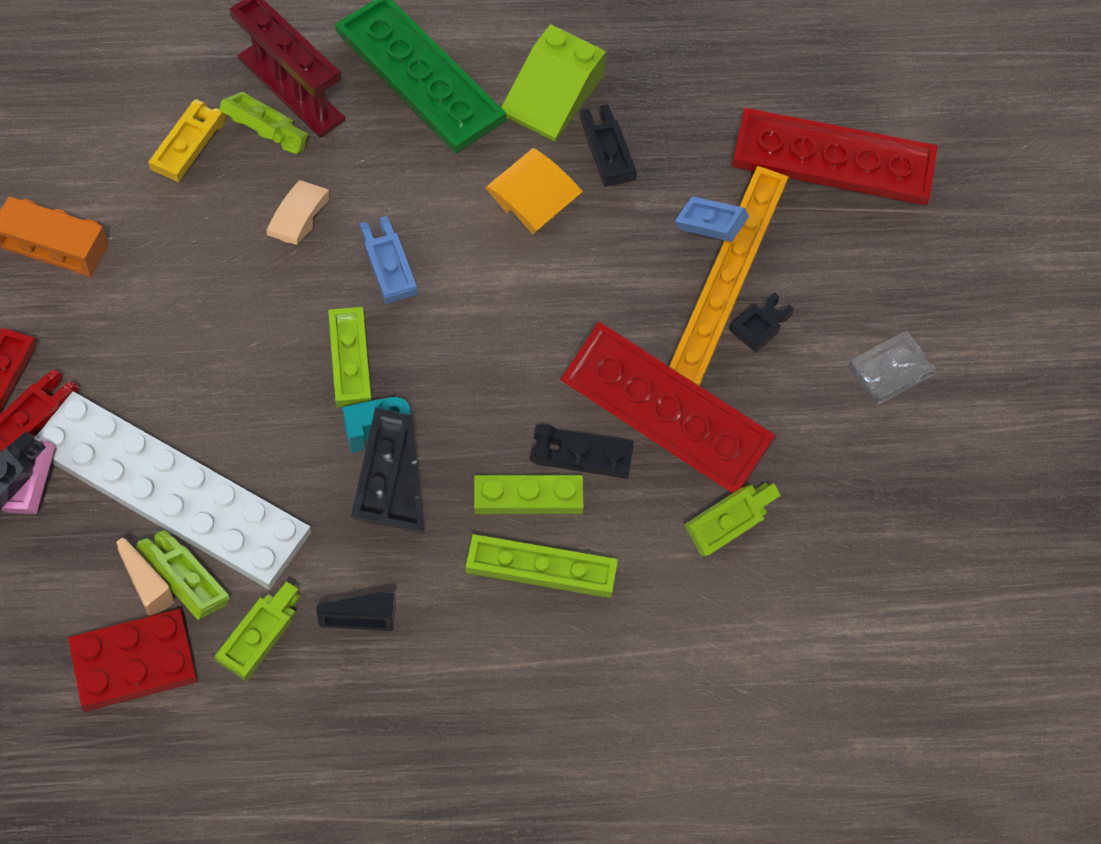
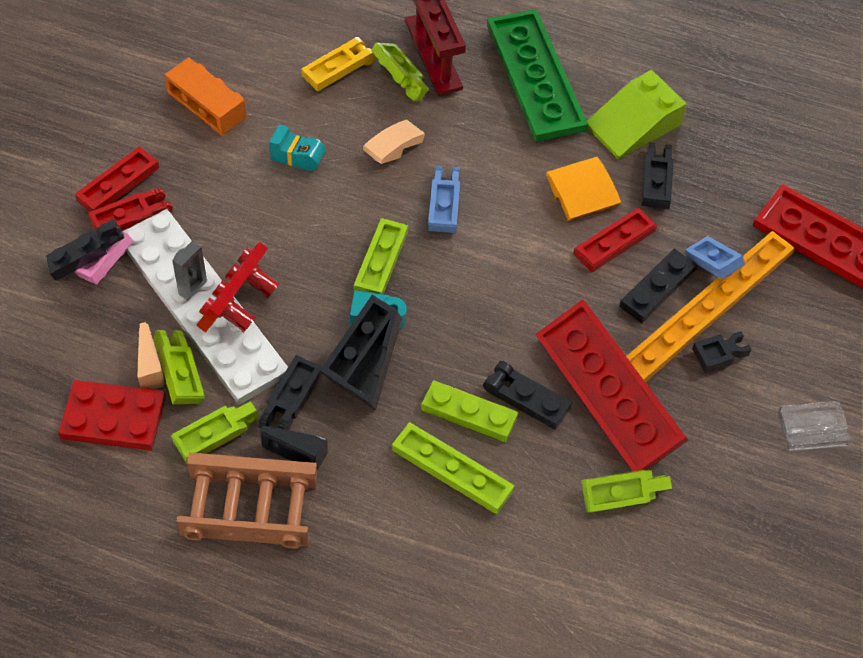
camera: 25 degrees right, 5 degrees down
(146, 457) = (189, 270): none -> dark grey plate
(190, 263) = (295, 149): none -> teal leg
(200, 466) = (224, 303): none -> red plate
(311, 667) = (243, 470): none -> nougat fence
(325, 551) = (291, 392): none -> black hinge
(594, 237) = (615, 239): none -> red tile
(663, 273) = (658, 285): none -> black plate

